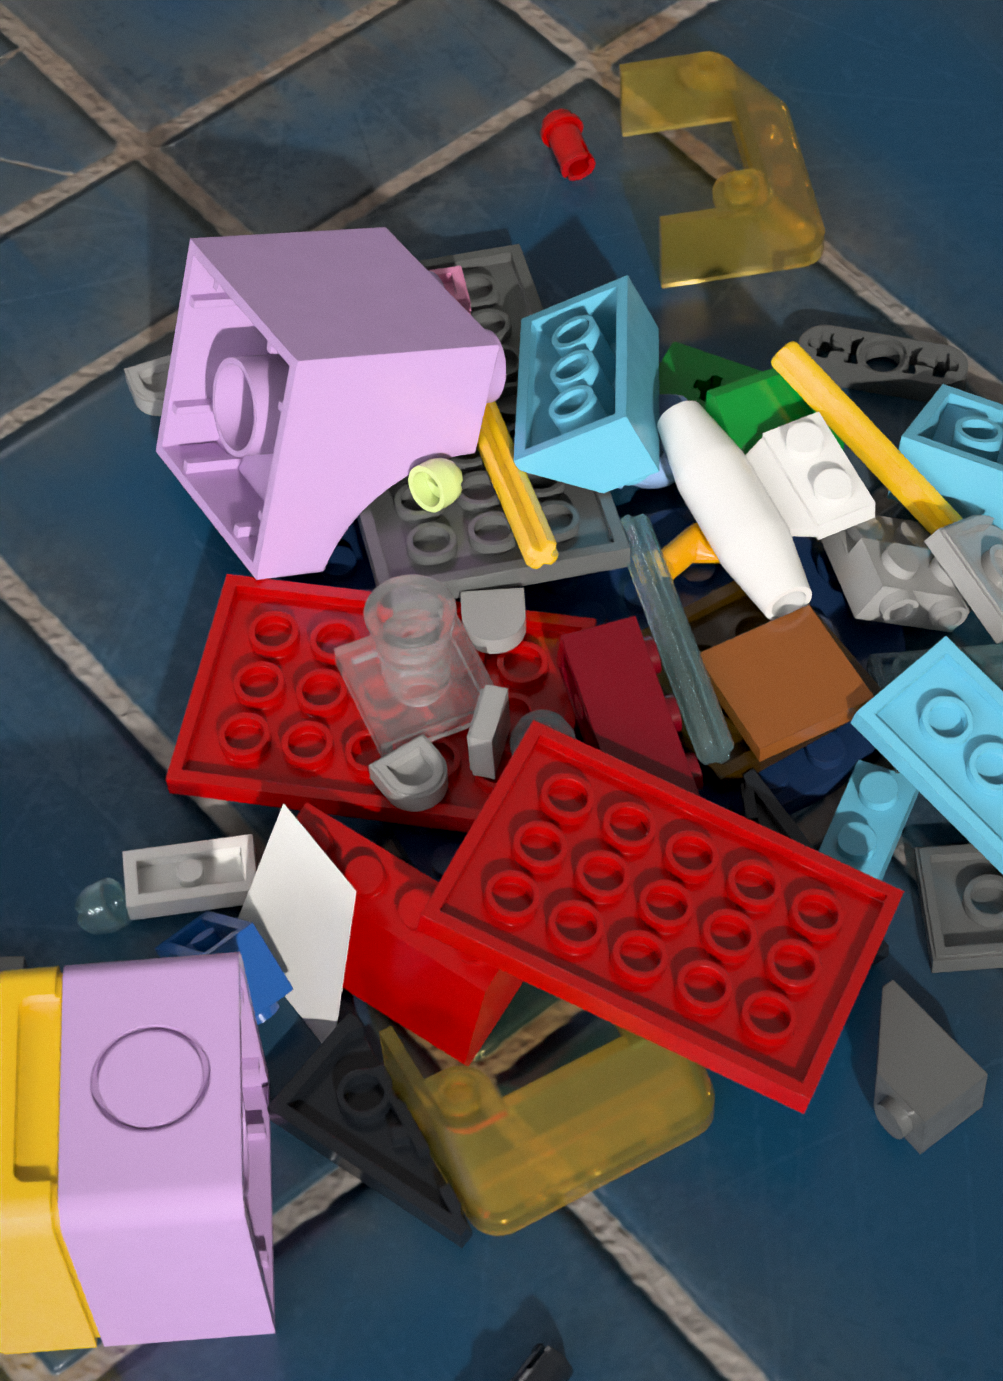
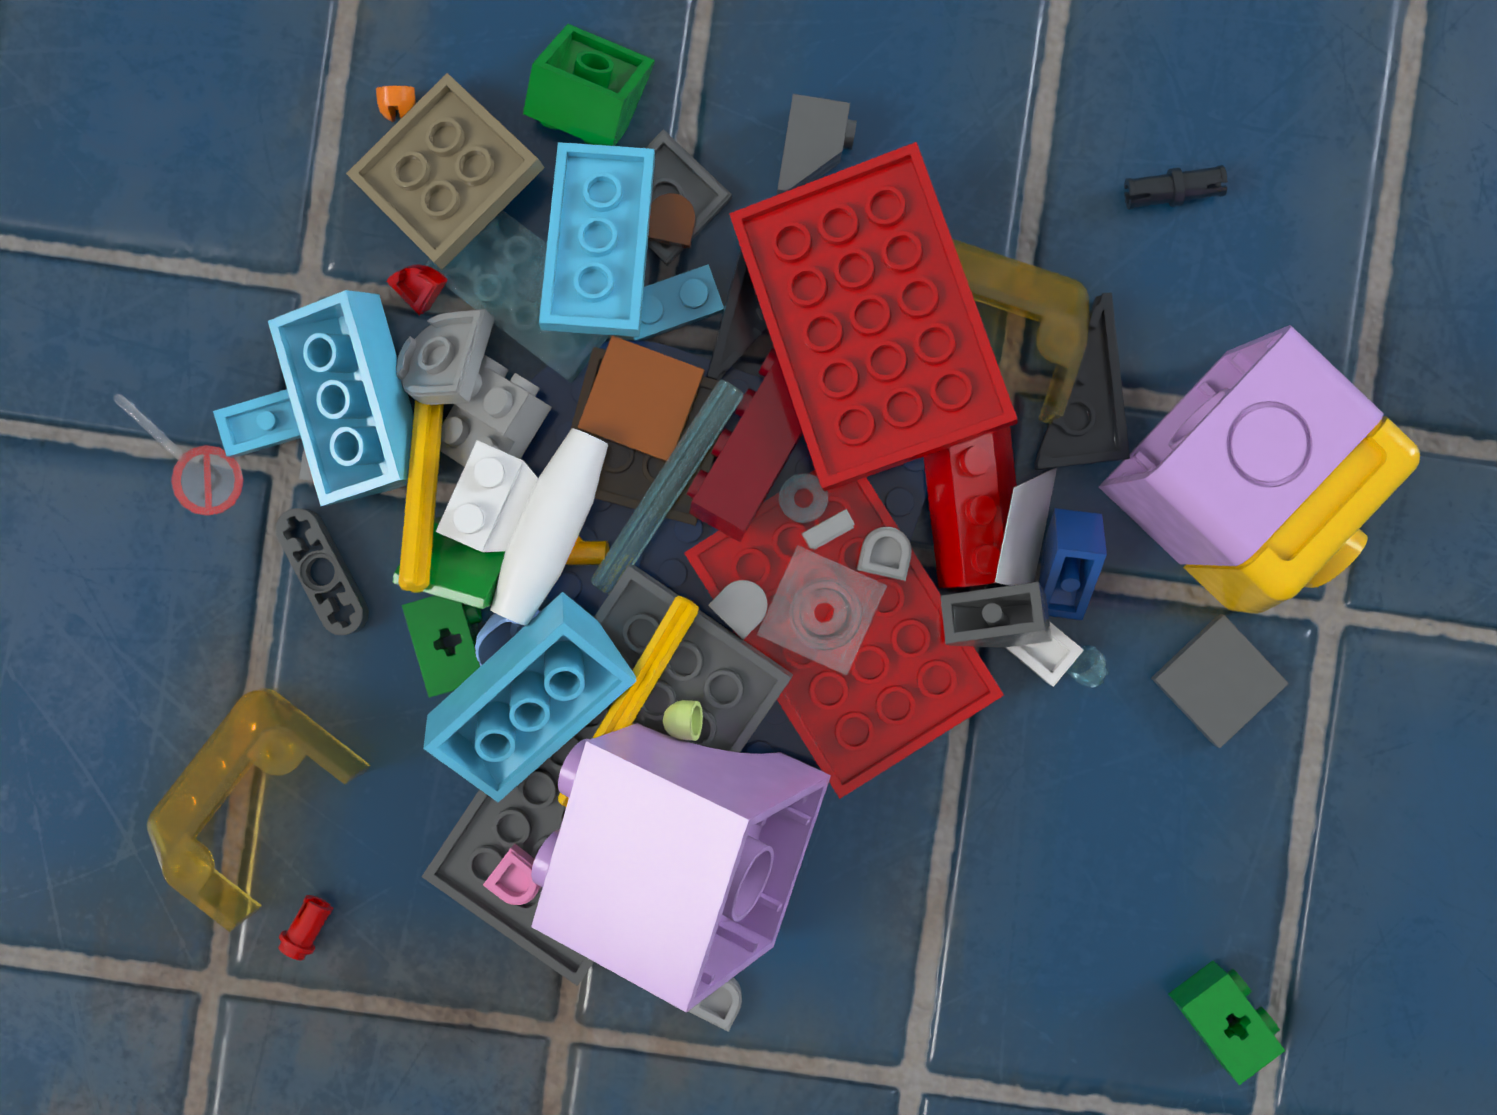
camera: 135 degrees left, 35 degrees up
(233, 829) = (997, 617): none -> dark grey slope
(952, 873) = (672, 220): none -> reddish brown tile

